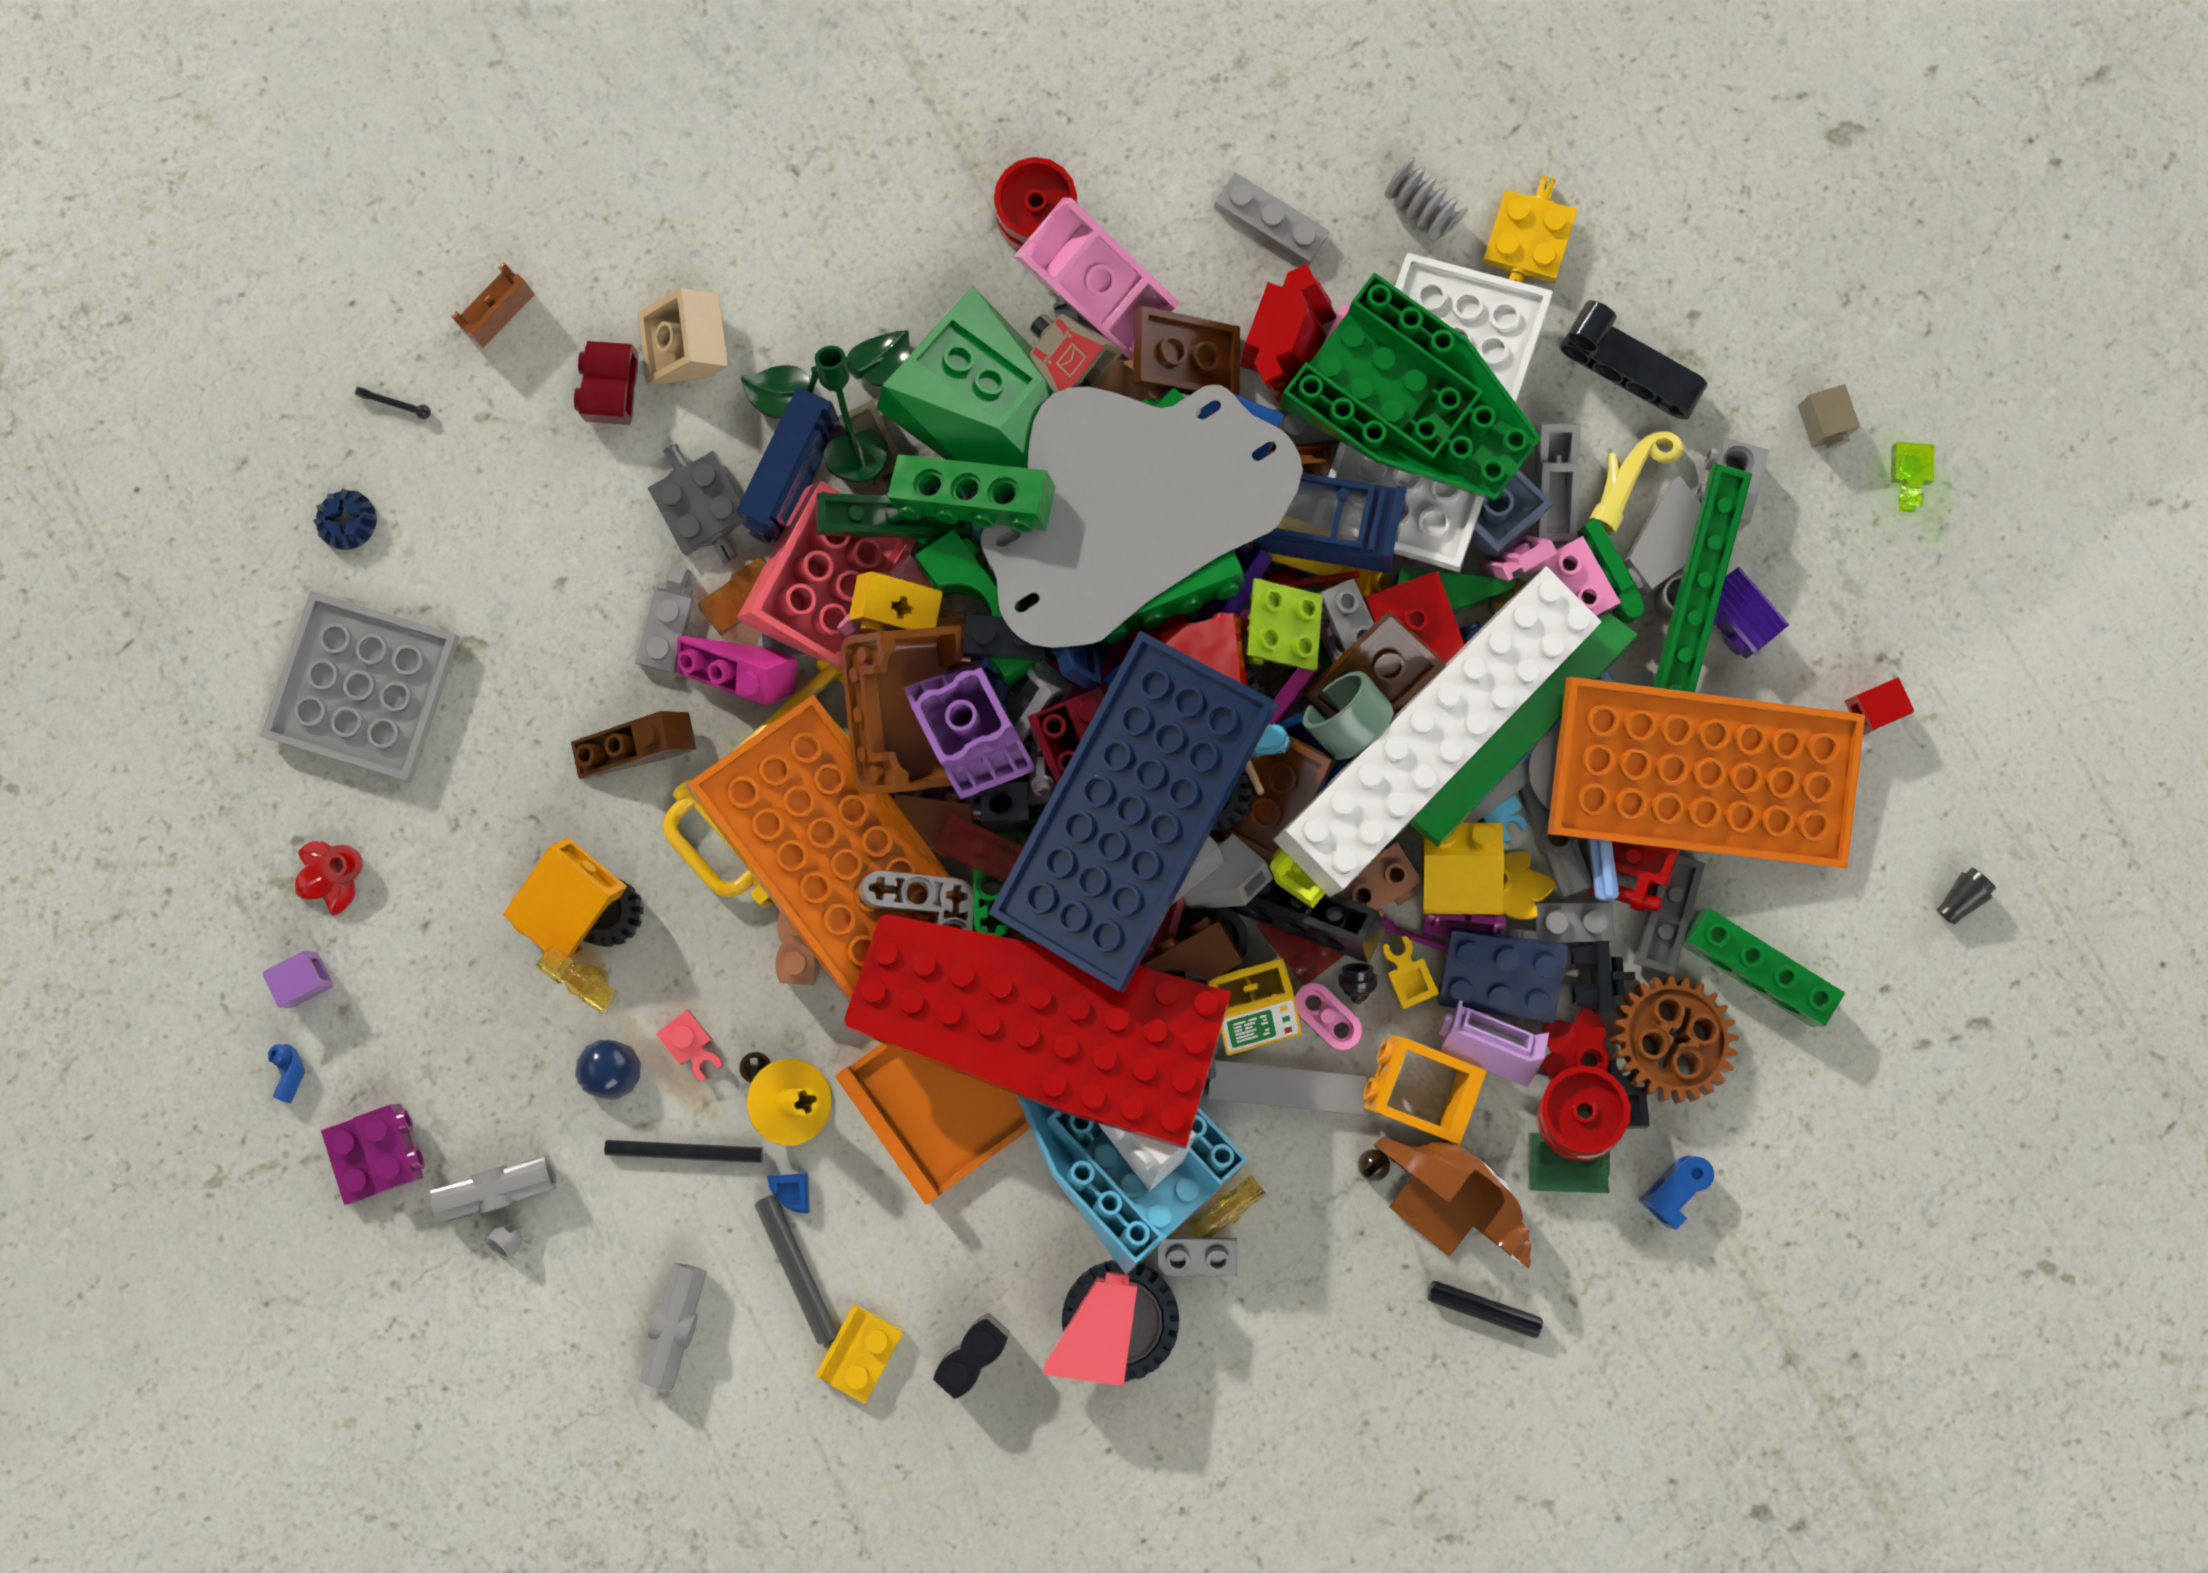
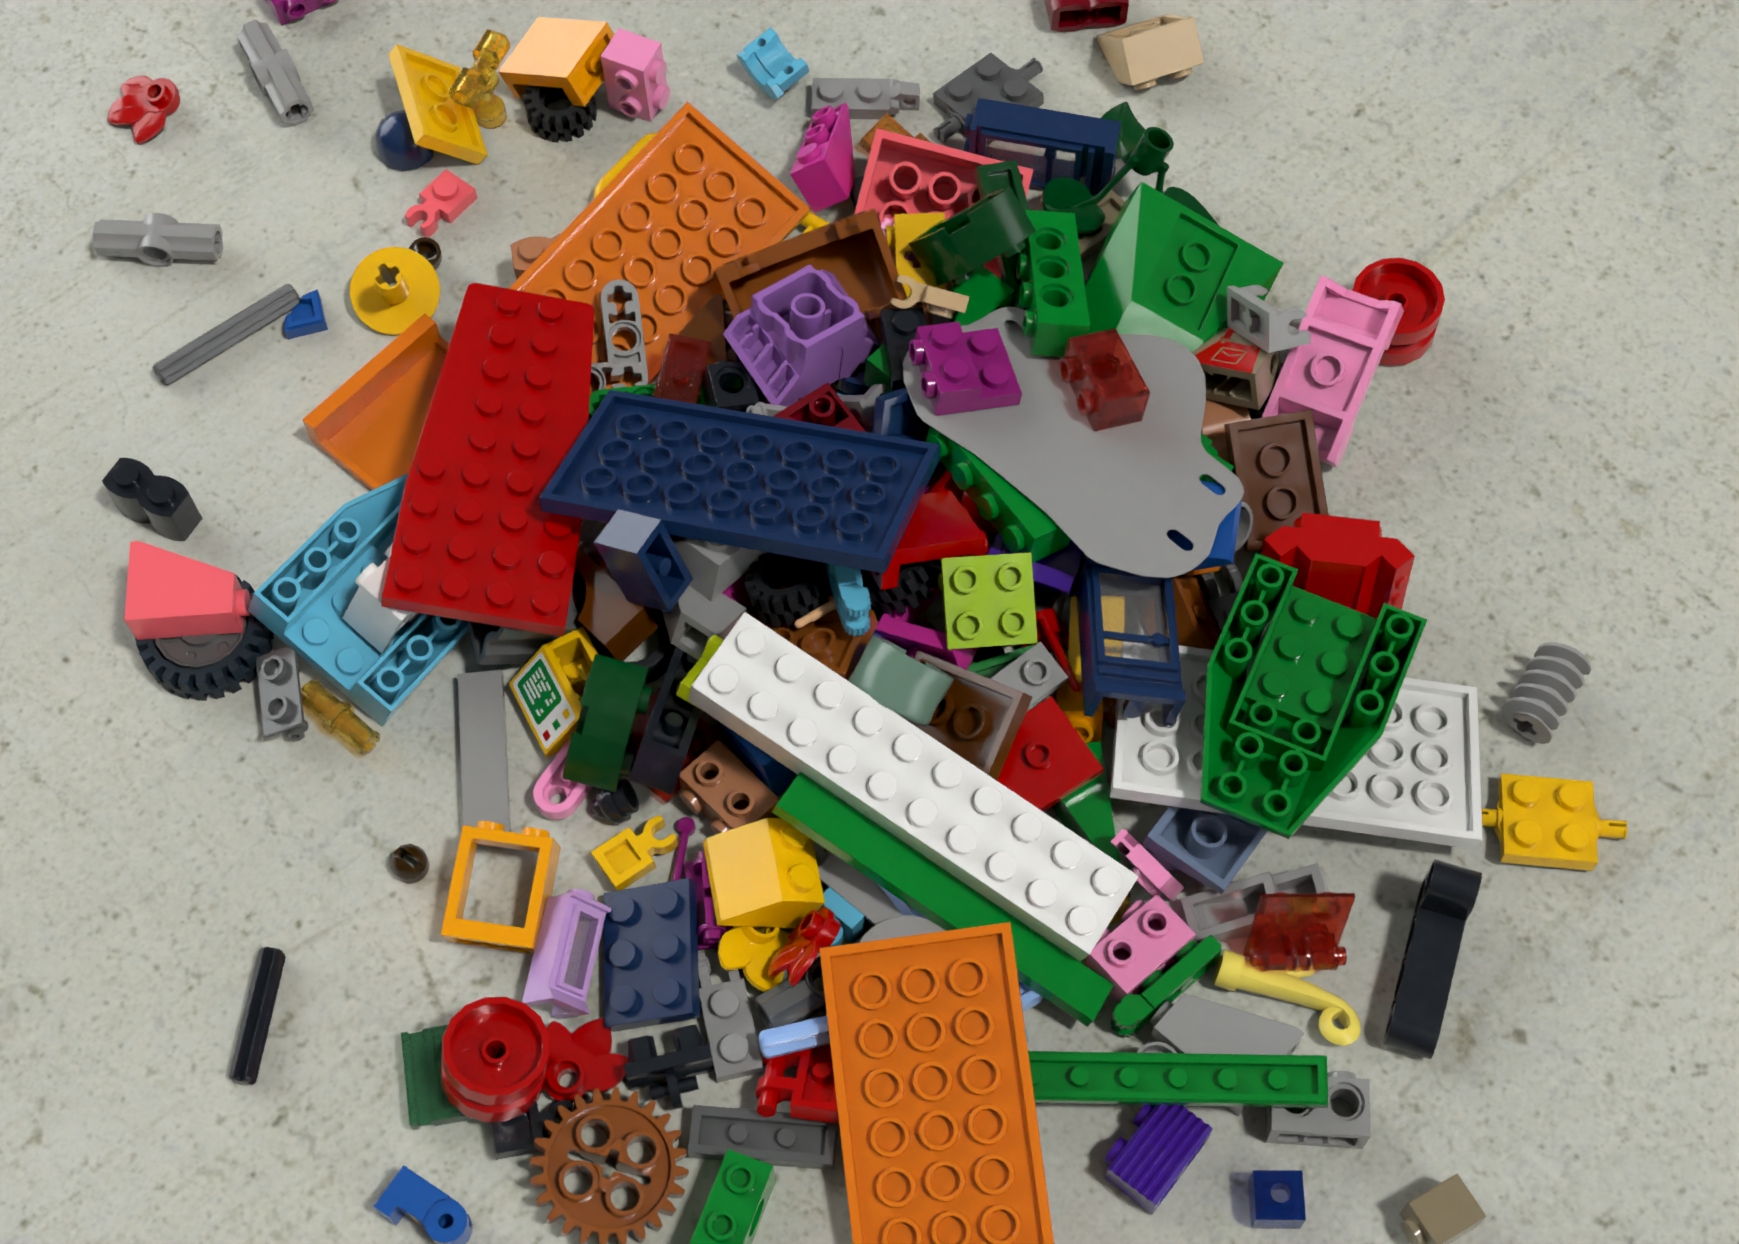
camera: 80 degrees right, 20 degrees down
(498, 1333) = (144, 106): none -> red plate
(504, 1241) = (227, 93): light grey hinge -> none
(577, 1034) = (431, 112): none -> yellow plate
(604, 830) = (635, 75): none -> bright pink brick
(615, 696) = (771, 64): none -> medium azure piece
(634, 743) = (732, 94): reddish brown slope -> none
(684, 1151) = (334, 220): black bar -> none
(859, 1353) = (147, 407): yellow plate -> none
(914, 551) = (973, 237): none -> dark green brick
(963, 597) = (940, 300): none -> tan plate
(1047, 320) = (1262, 322): none -> light grey hinge
(1056, 591) = (963, 369): none -> magenta plate
(1074, 462) = (1104, 379): none -> clear red brick
(1195, 911) = (643, 560): none -> dark blue brick
(1271, 219) = (1467, 549): light grey plate -> none
(1311, 972) = (606, 723): none -> dark green brick
(1453, 1194) = (381, 948): dark orange animal -> none
(1534, 848) = (803, 944): none -> red plate
(1602, 457) = (1300, 927): none -> clear red hinge
(1784, 542) = (1270, 1214): none -> clear blue plate

